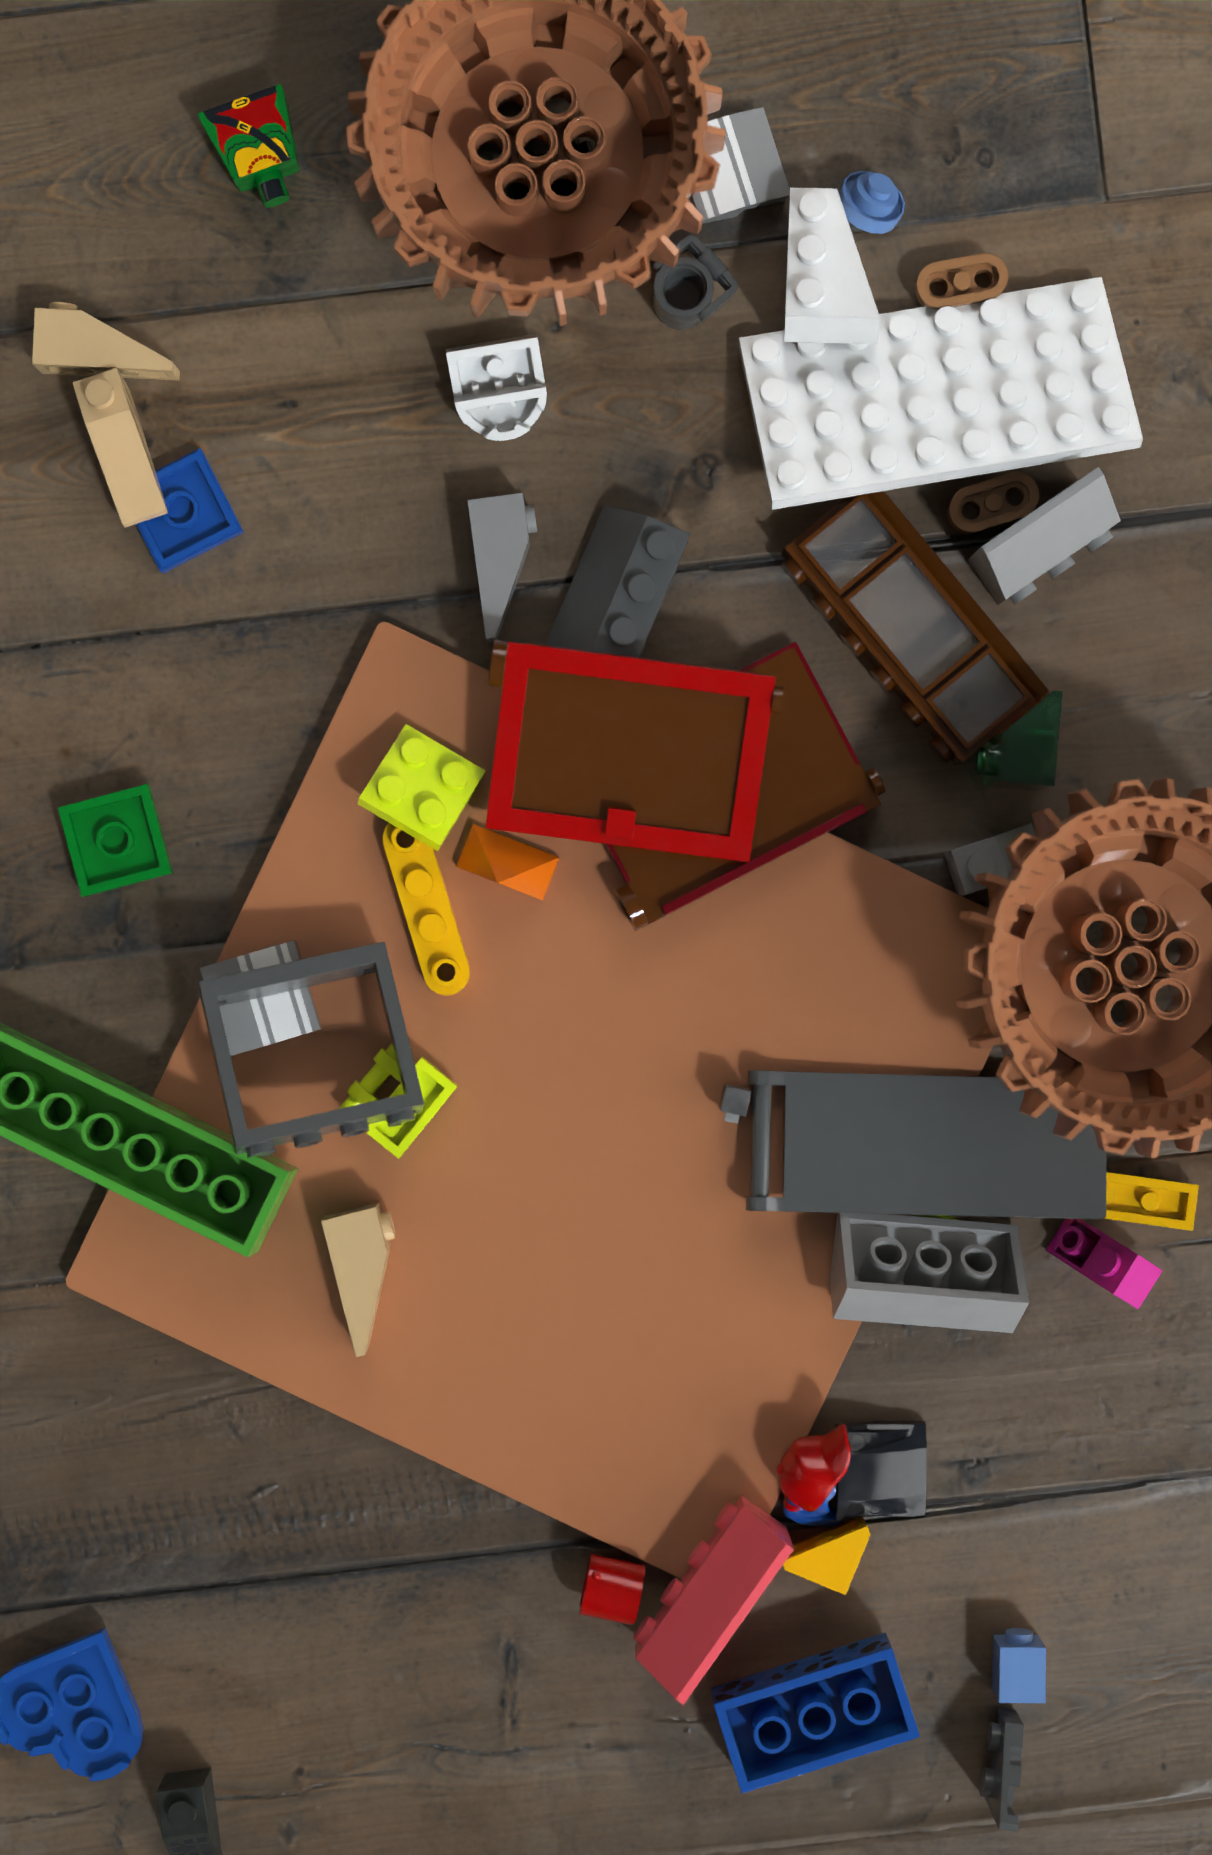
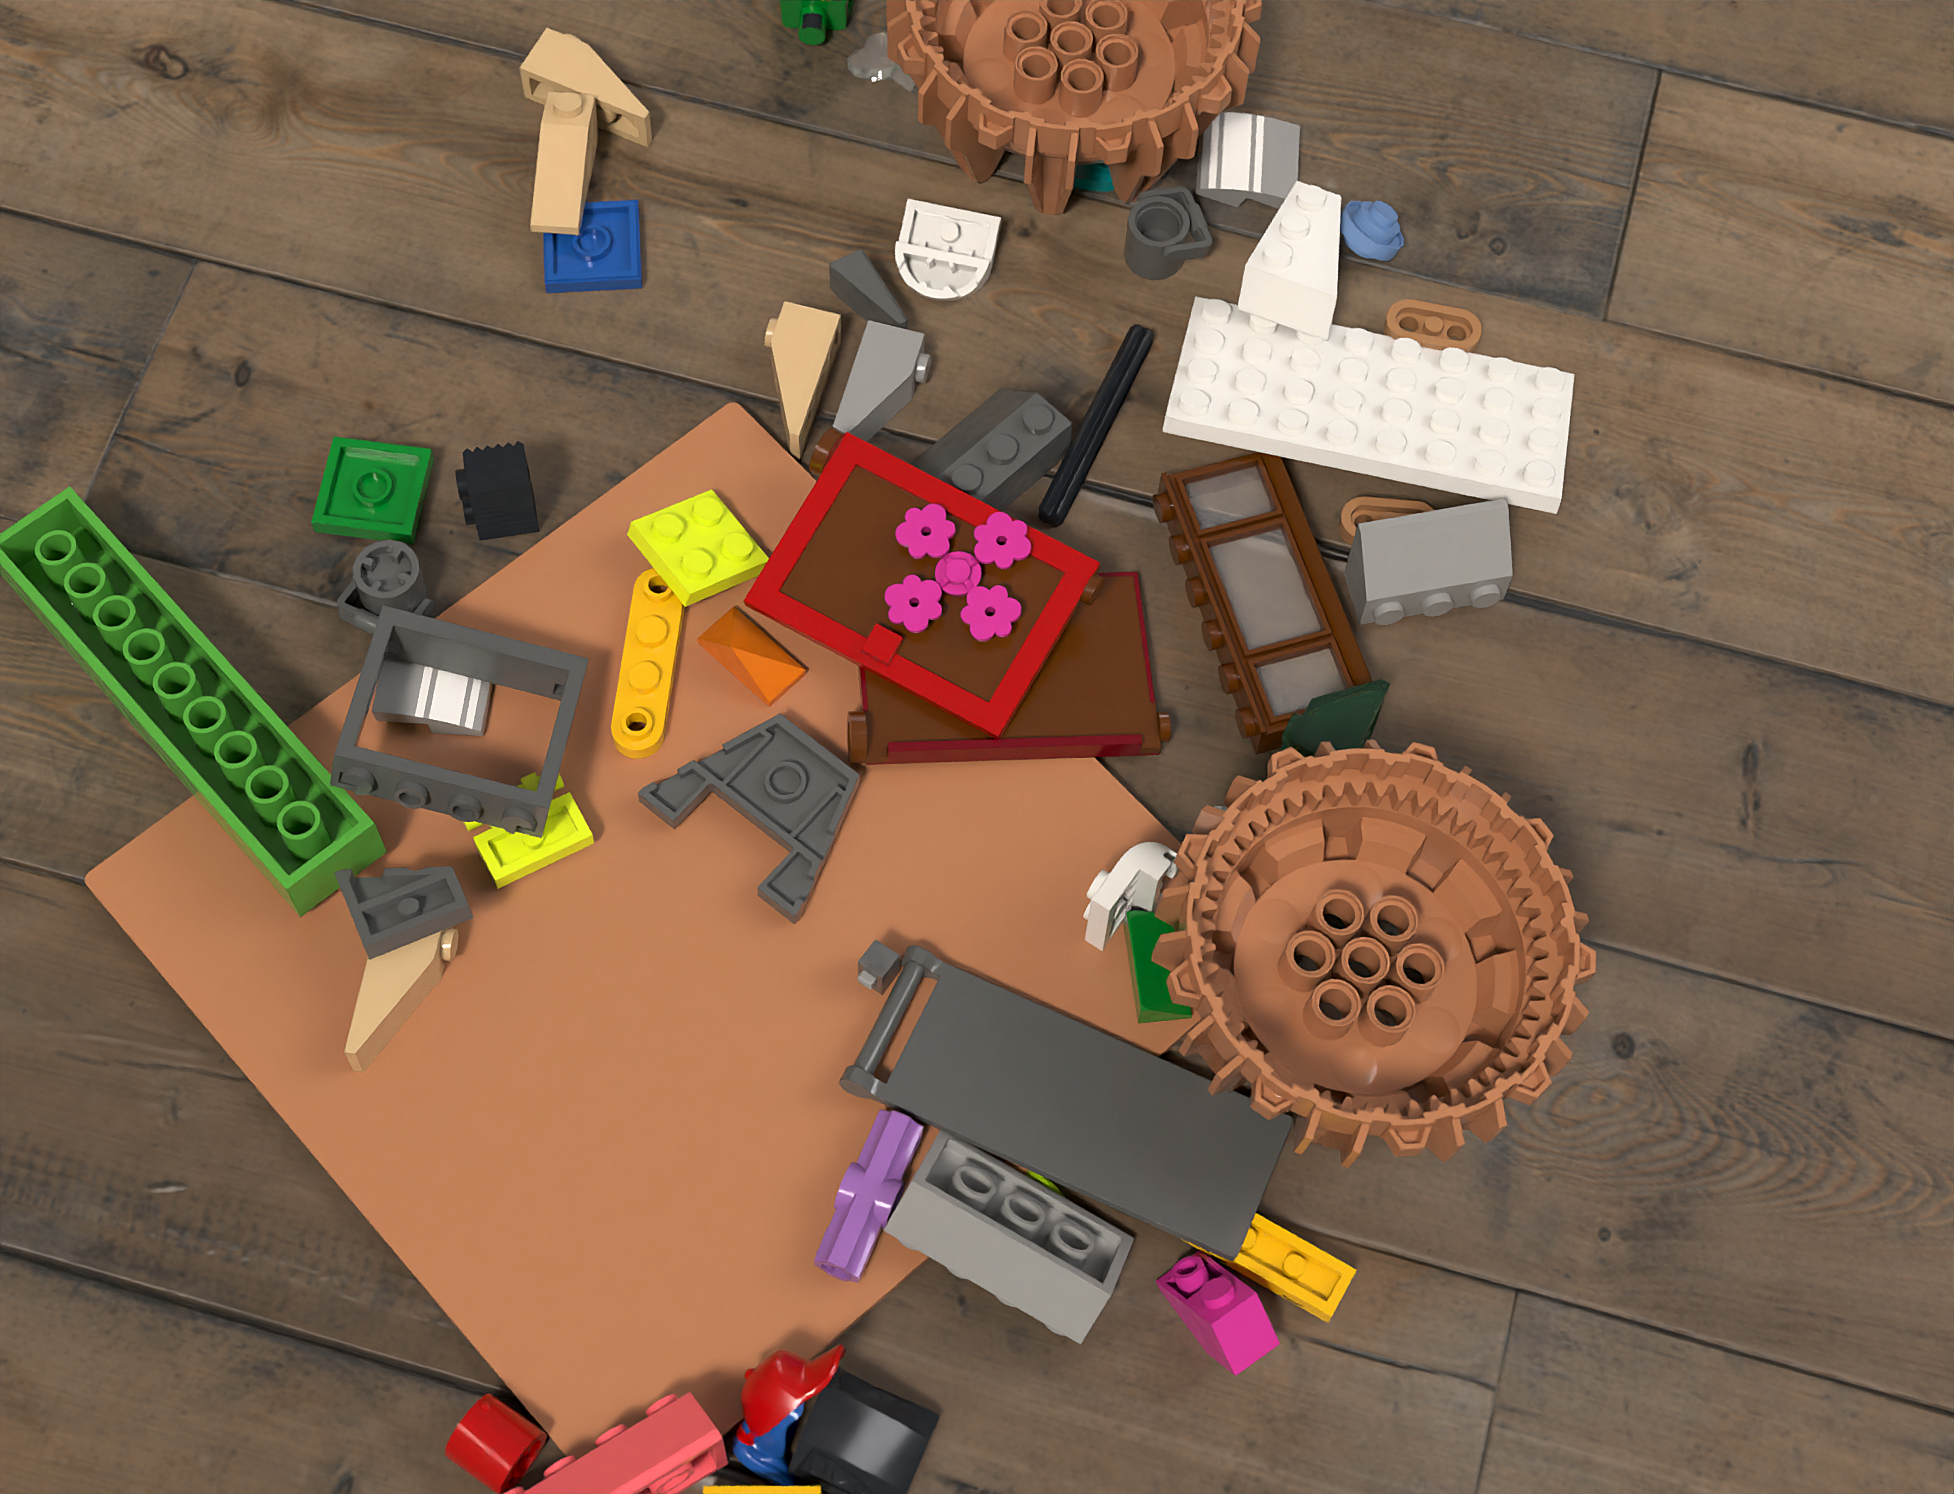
camera: 20 degrees right, 25 degrees down
(176, 928) = (386, 576): none -> dark grey piece
(228, 809) = (497, 491): none -> black brick
(342, 201) = (873, 64): none -> clear rock
(342, 1227) = (403, 905): none -> dark grey wing
(422, 557) = (802, 357): none -> tan slope
(441, 457) = (863, 290): none -> dark grey slope
(589, 975) = (781, 786): none -> dark grey wing
(660, 737) = (958, 572): none -> dark pink plant
(702, 506) = (1095, 425): none -> black axle
(807, 1289) = (868, 1196): none -> medium lavender piece
(917, 943) = (1129, 887): none -> white slope
(941, 984) = (1147, 977): none -> green slope

